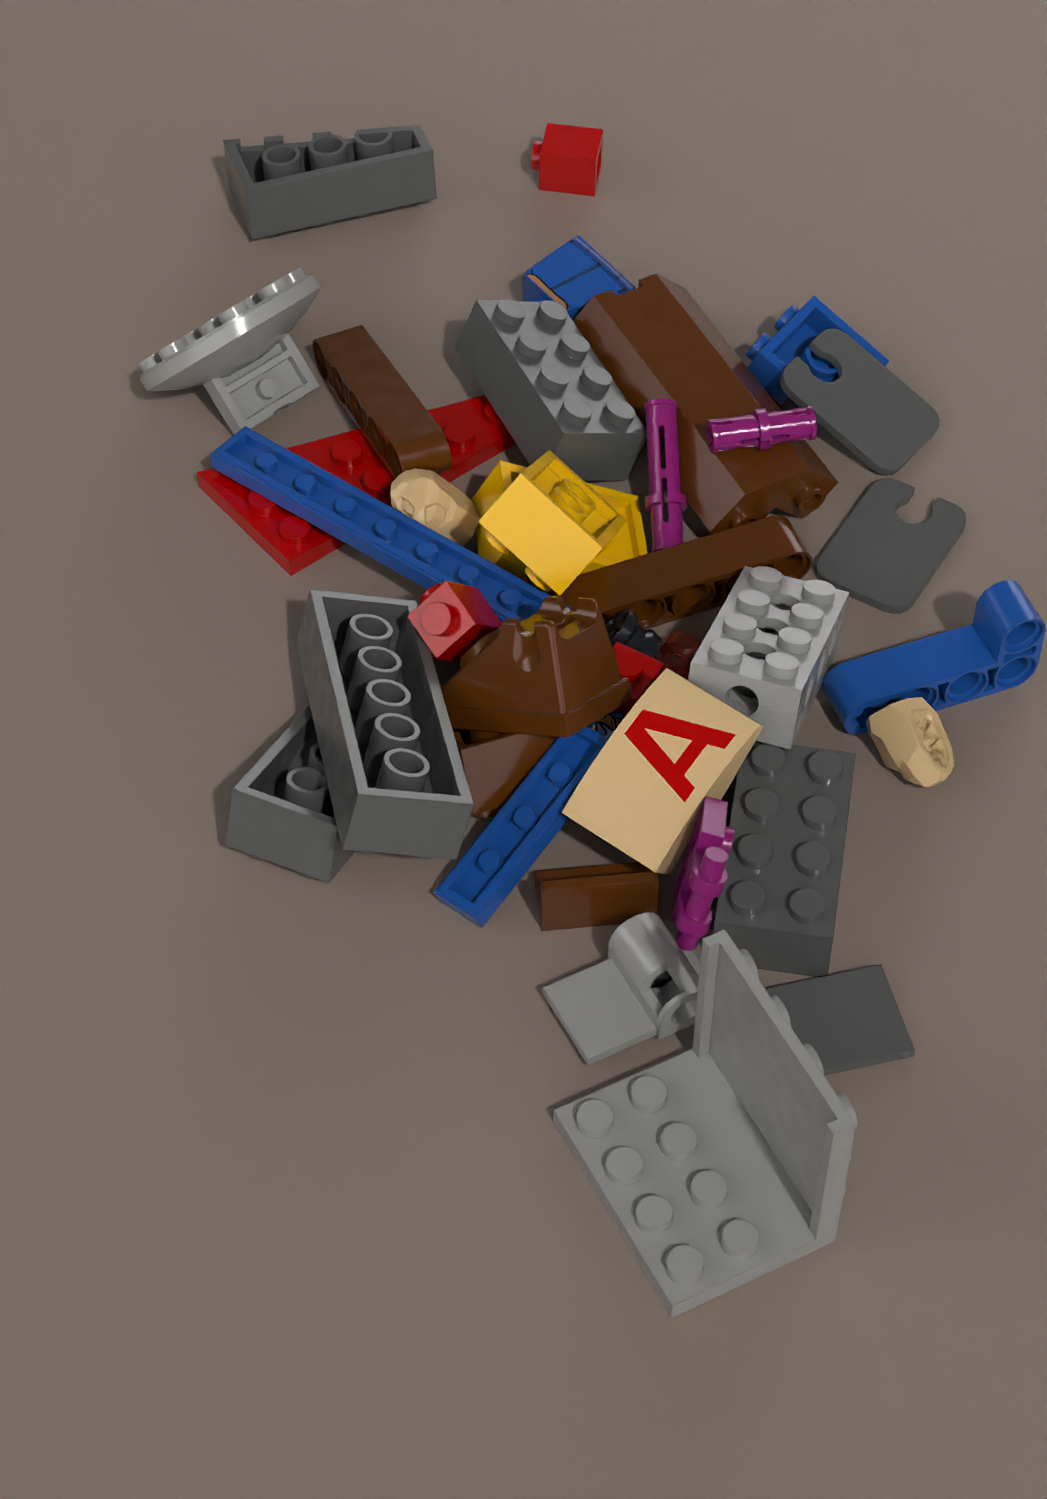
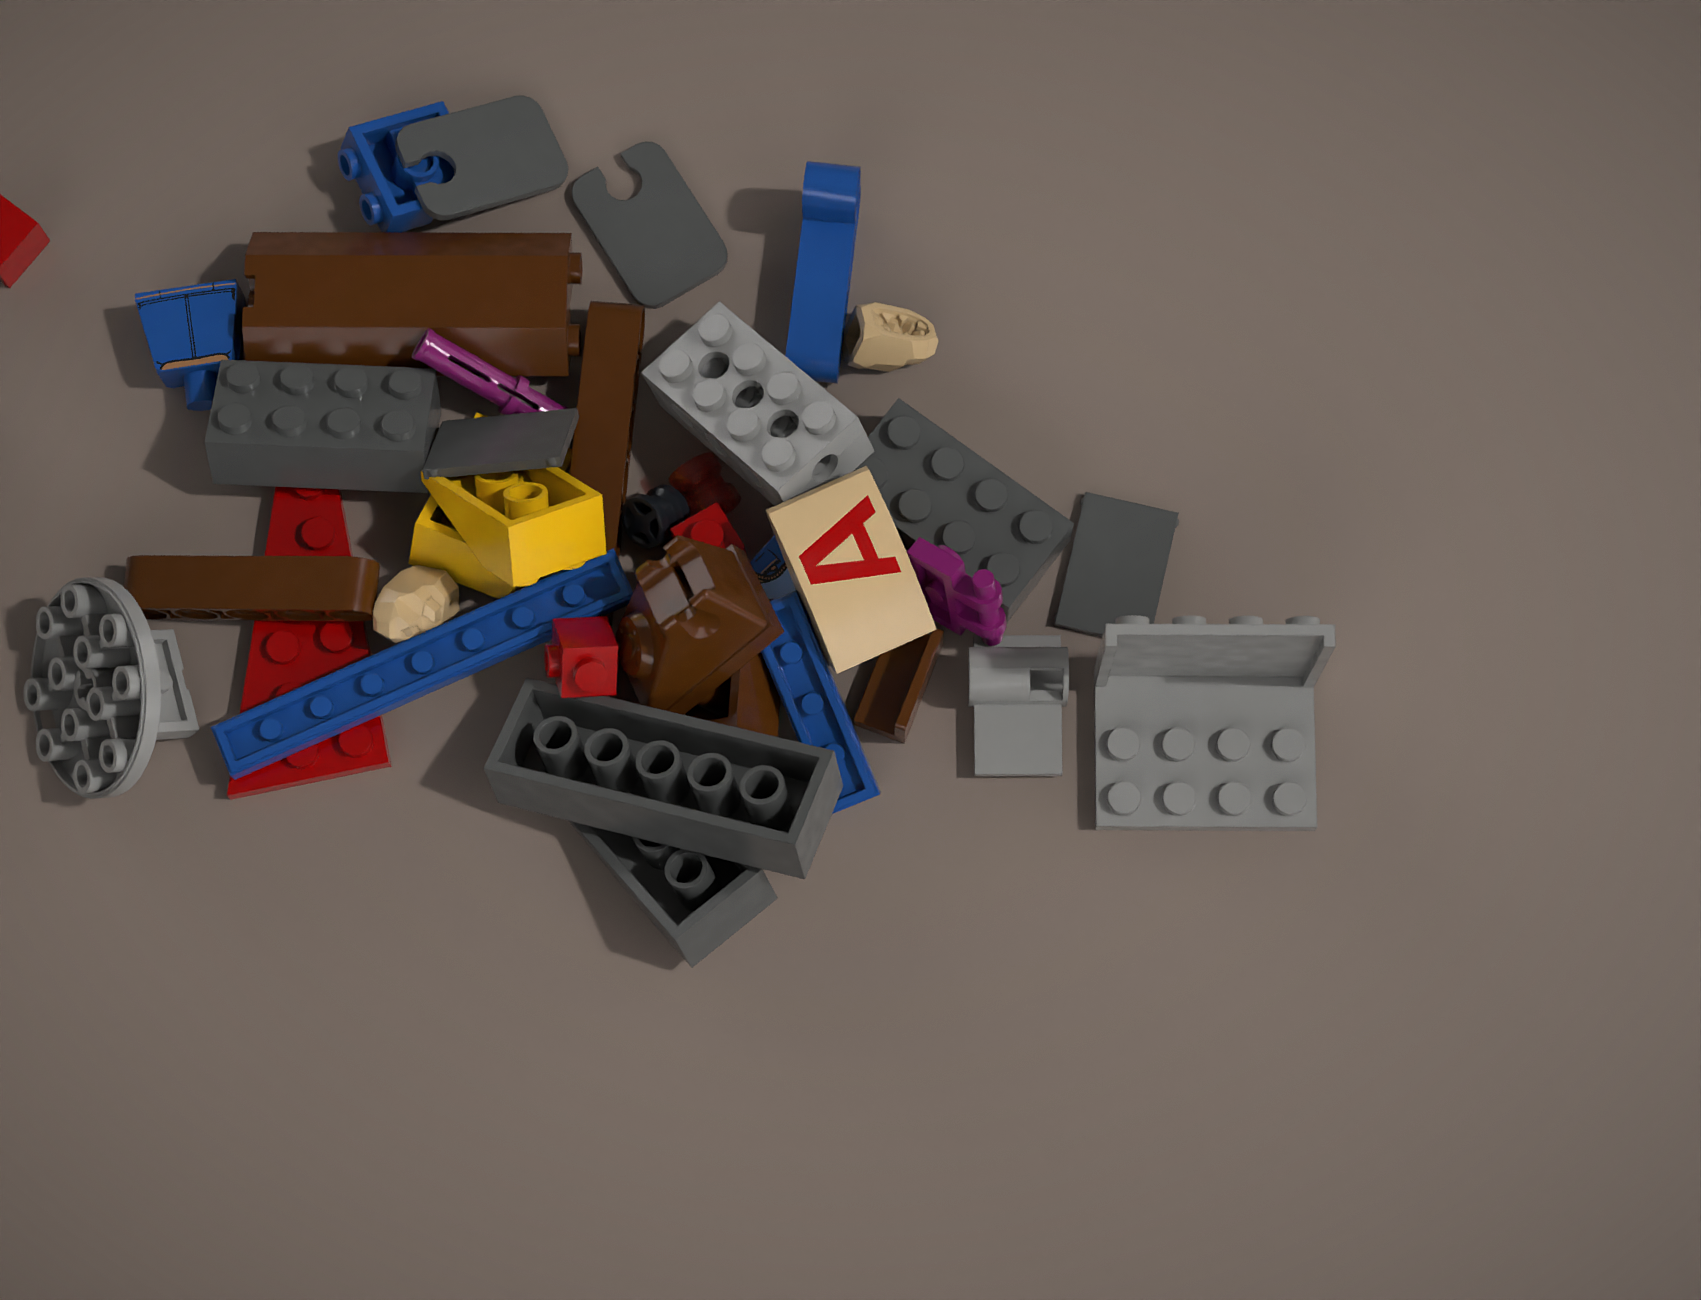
camera: 60 degrees left, 25 degrees up
(612, 495) = (501, 443): none -> dark grey piece
(761, 429) = (508, 273): magenta pin -> none

